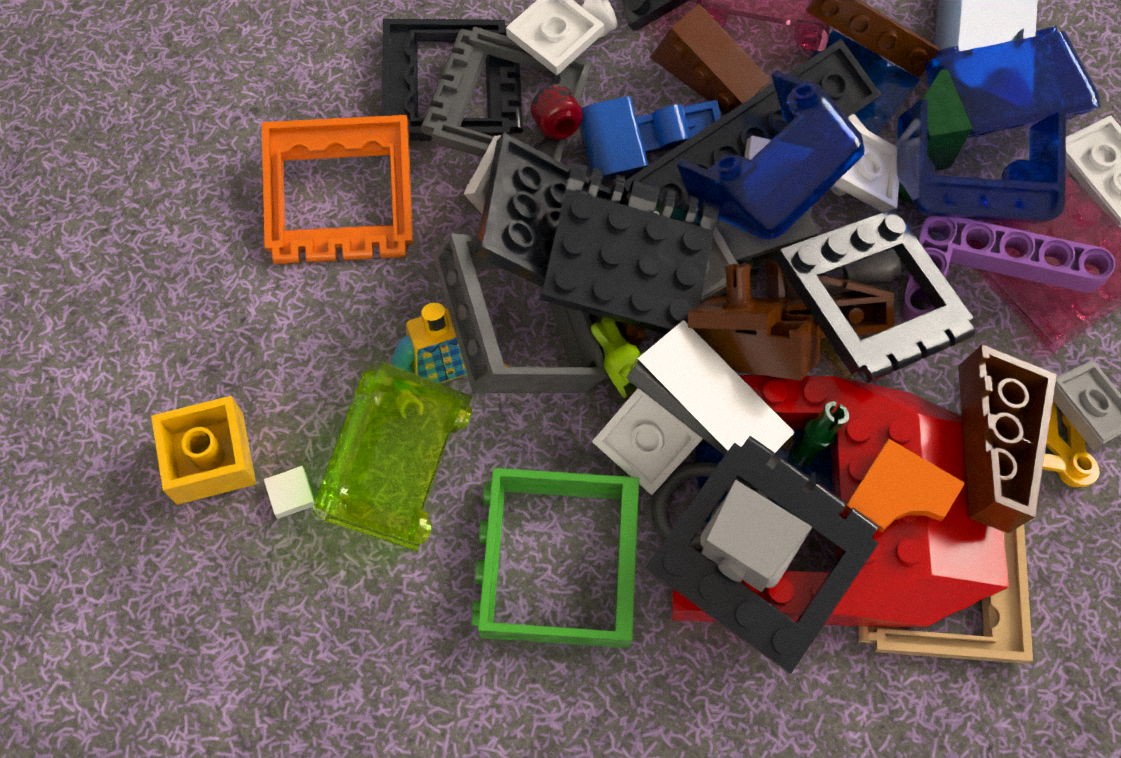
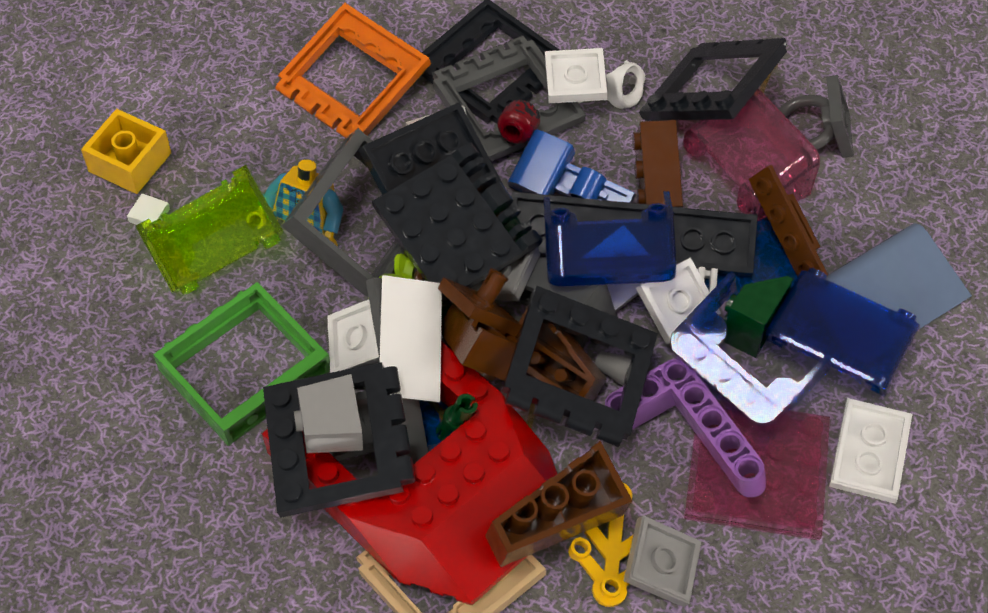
camera: 45 degrees right, 10 degrees down
(904, 486) = (455, 474): orange tile -> none

